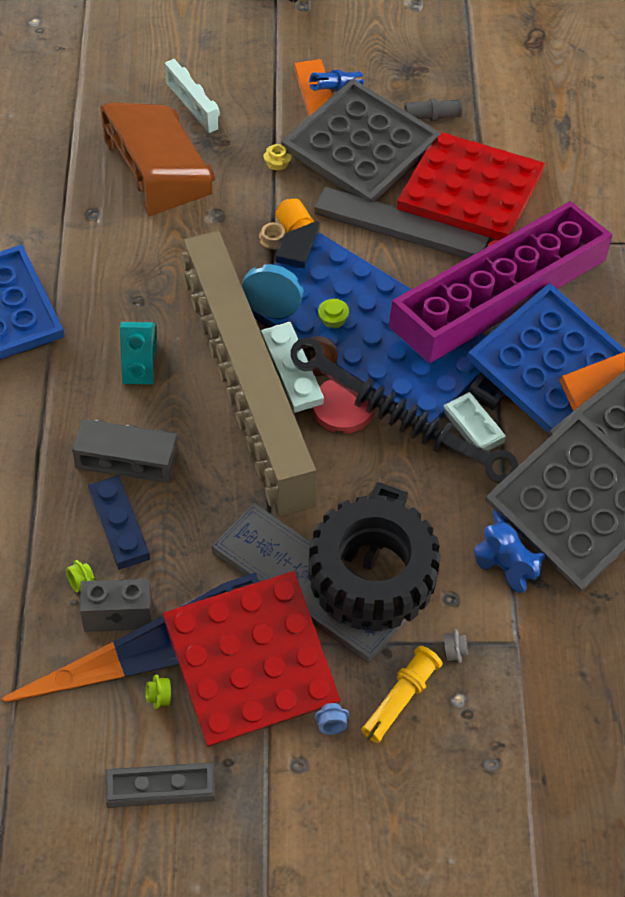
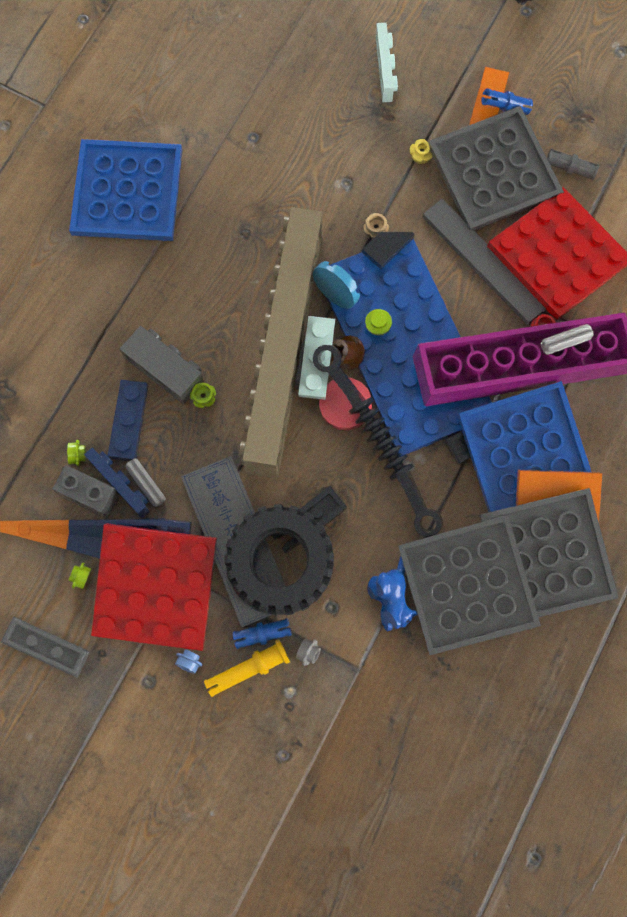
camera: 30 degrees right, 20 degrees up
(138, 352) = (215, 282): teal pin -> none
(157, 154) = (325, 107): dark orange windscreen -> none
(164, 588) = (119, 481): none -> dark blue plate
(175, 571) = (145, 482): none -> light grey axle
(187, 454) = (203, 388): none -> lime plate
(292, 214) = (400, 216): light orange brick -> none
(394, 653) = (262, 633): none -> blue pin
(474, 422) = (433, 471): light aqua plate -> none
(532, 239) = (567, 339): none -> light grey axle

